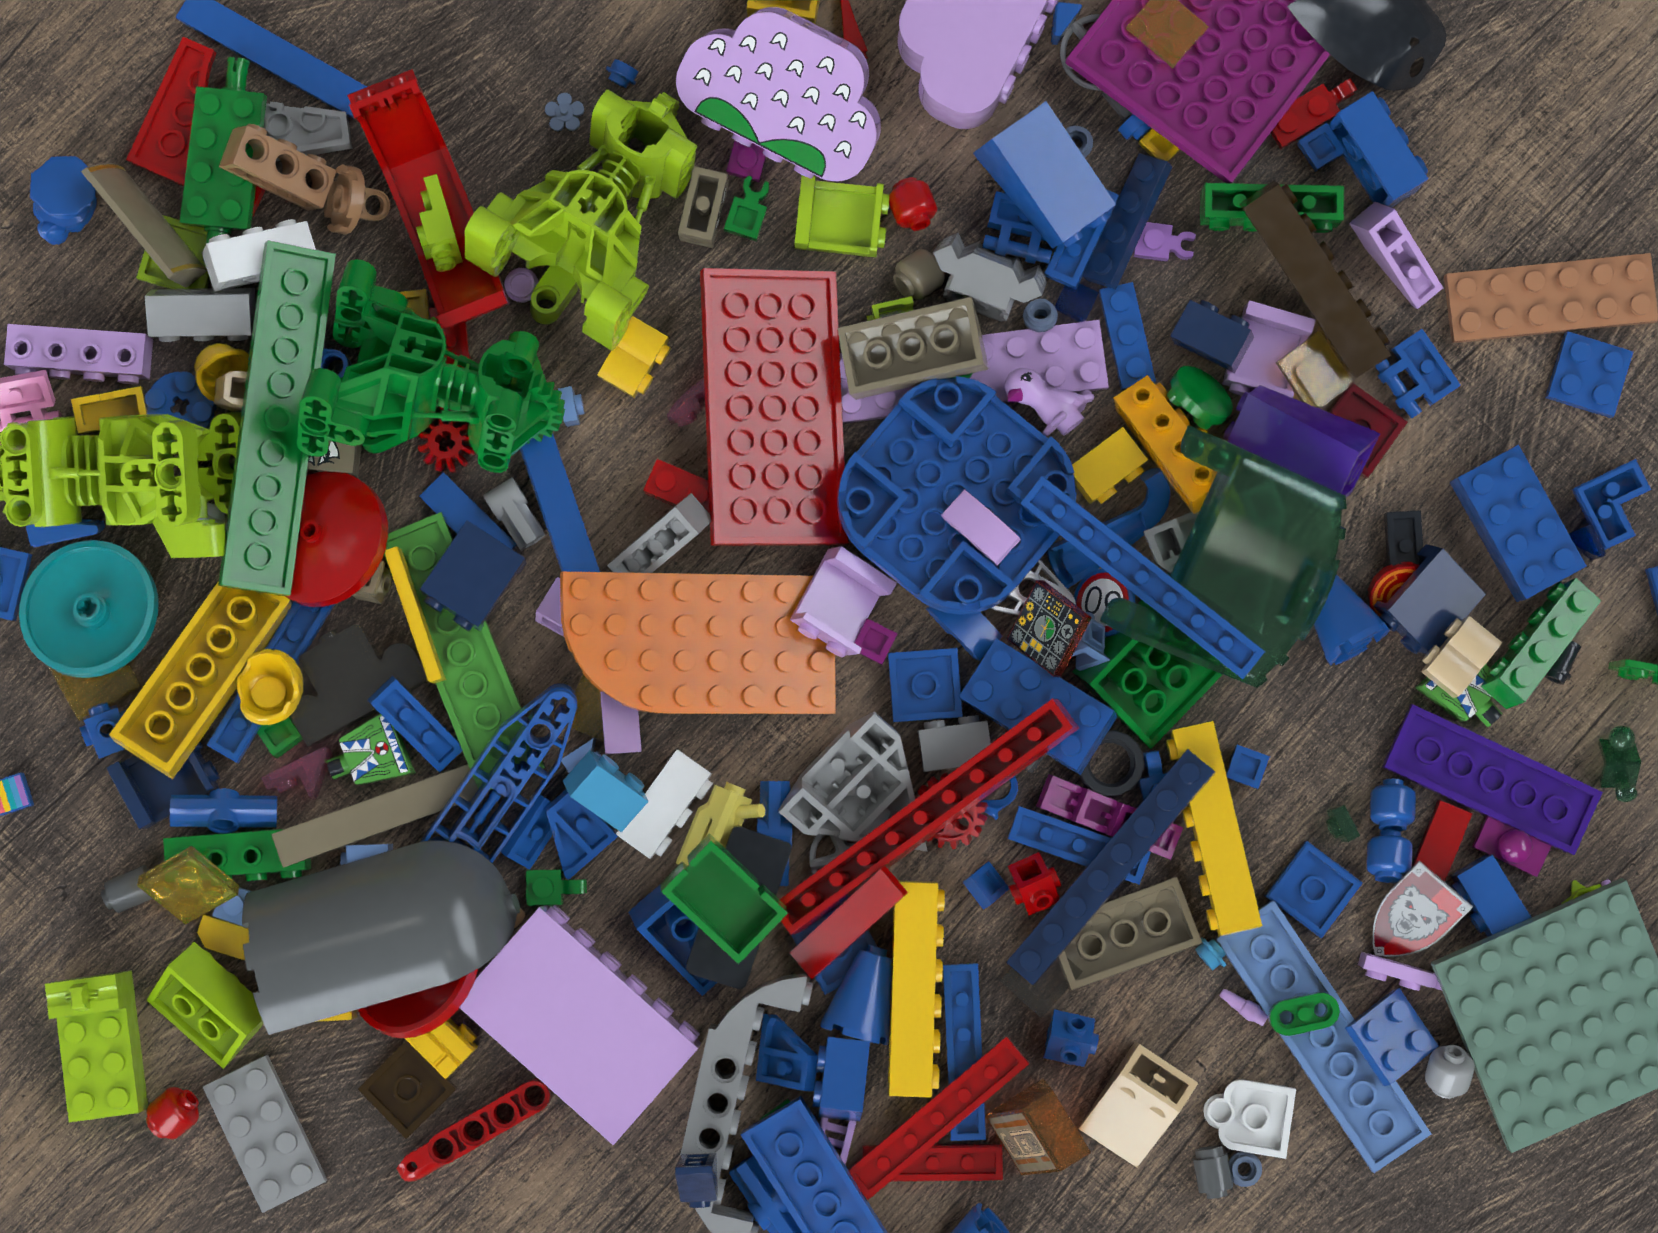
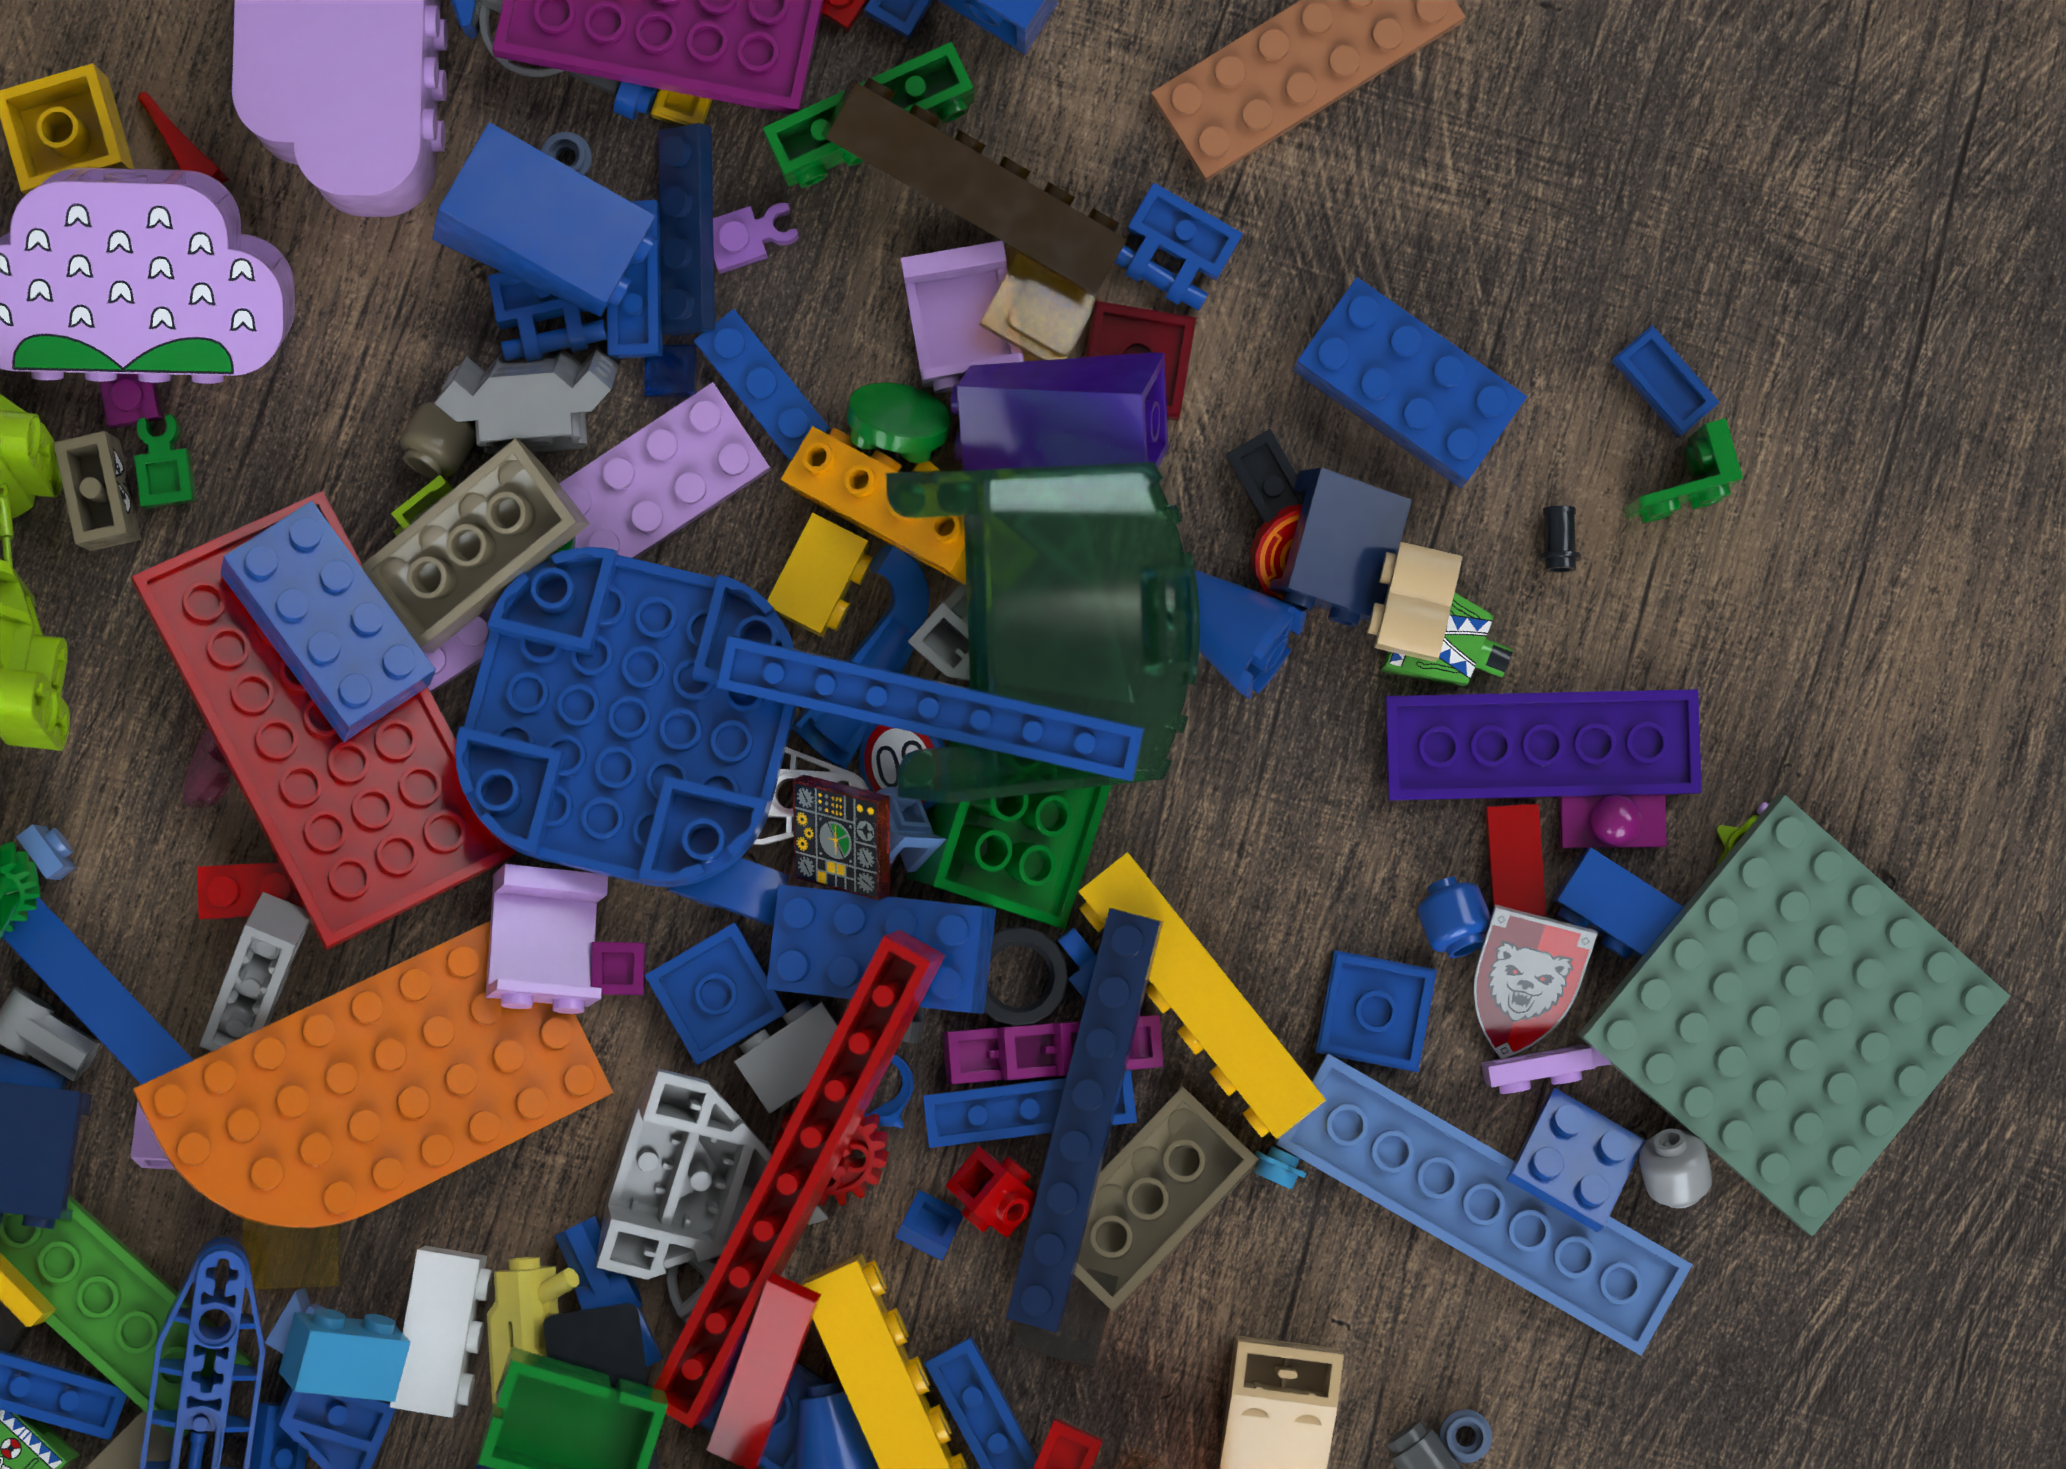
camera: 30 degrees left, 0 degrees up
(620, 727) = (326, 1259): lavender slope -> none
(634, 358) = (104, 742): yellow brick -> none
(805, 351) = (327, 621): none -> blue brick
(840, 218) = (293, 414): lime panel -> none
(912, 204) = (382, 348): red head -> none
(980, 527) = (680, 746): lavender slope -> none
(1036, 308) = (624, 404): sand blue plate -> none
(1054, 406) = (707, 530): lavender animal -> none
(1070, 1038) = (1144, 1377): blue brick -> none
(1213, 335) = (875, 328): dark blue brick -> none
(1246, 766) = (1205, 890): blue plate -> none
(1246, 1008) = (1363, 1217): lavender piece -> none
(1253, 1117) = (1442, 1360): white plate -> none
(1303, 1014) = (1443, 1192): green plate -> none
(1341, 824) = (1369, 905): clear green plate -> none
(1392, 805) = (1426, 845): blue head -> none
(1396, 253) = (1070, 97): lavender slope -> none
(1540, 643) = (1516, 530): brick -> none
(1588, 542) = (1514, 362): clear blue slope -> none
(1589, 374) = (1408, 135): blue plate -> none
(1602, 499) = (1507, 298): blue brick -> none
(1620, 763) = (1703, 638): clear green piece -> none

